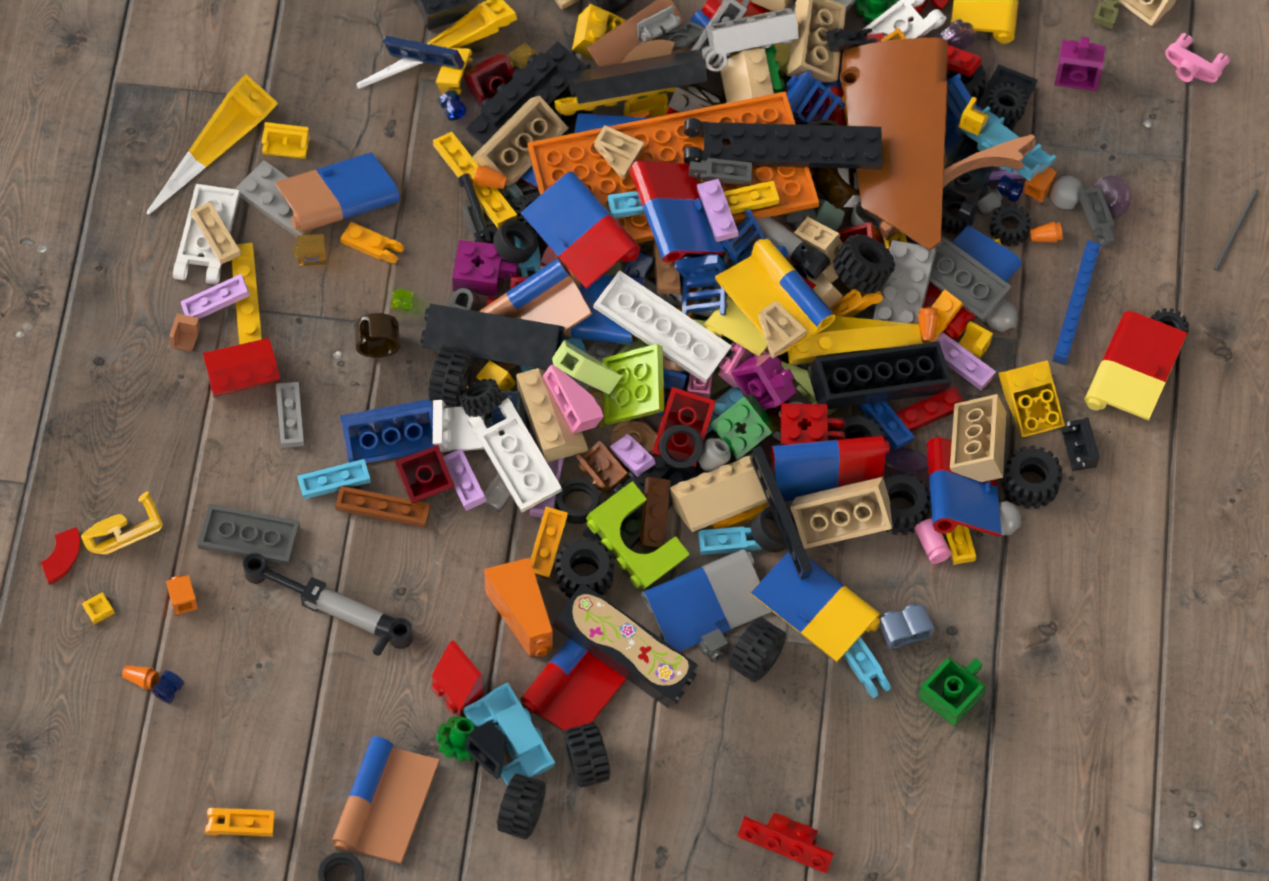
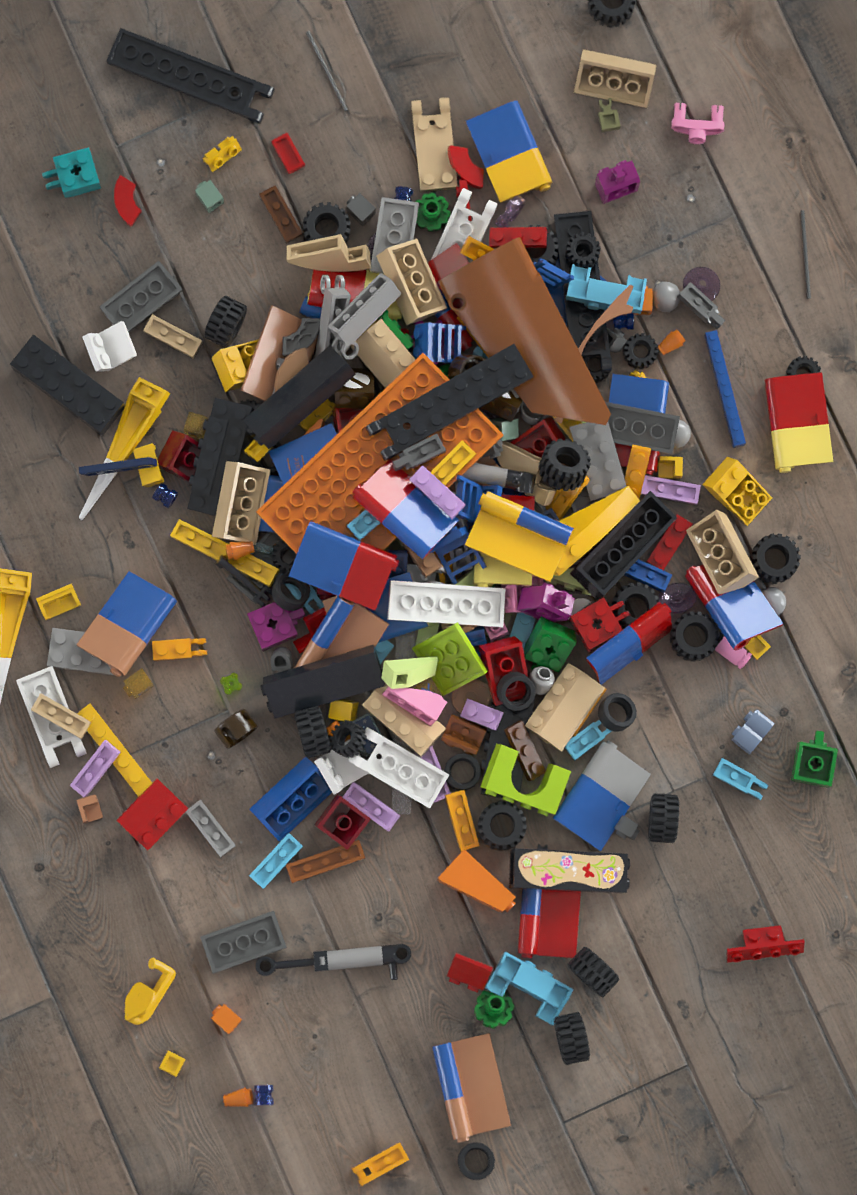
camera: 35 degrees left, 20 degrees up
(63, 556) = (120, 1039): red tile -> none
(487, 748) = (522, 1008): black slope -> none
(618, 149) = (330, 480): tan wing -> none
(650, 27) = (279, 344): light grey hinge -> none
(779, 328) = (540, 564): tan wing -> none
(781, 513) = (619, 703): black tile -> none
(817, 606) = (680, 753): door -> none
(819, 237) = (517, 460): tan hinge -> none
(841, 40) = (438, 268): black hinge -> none
(842, 513) = (660, 672): tan slope -> none
(928, 322) = (633, 479): orange cone -> none
(973, 119) = (574, 290): yellow panel -> none
(1080, 444) = (793, 509): black hinge -> none

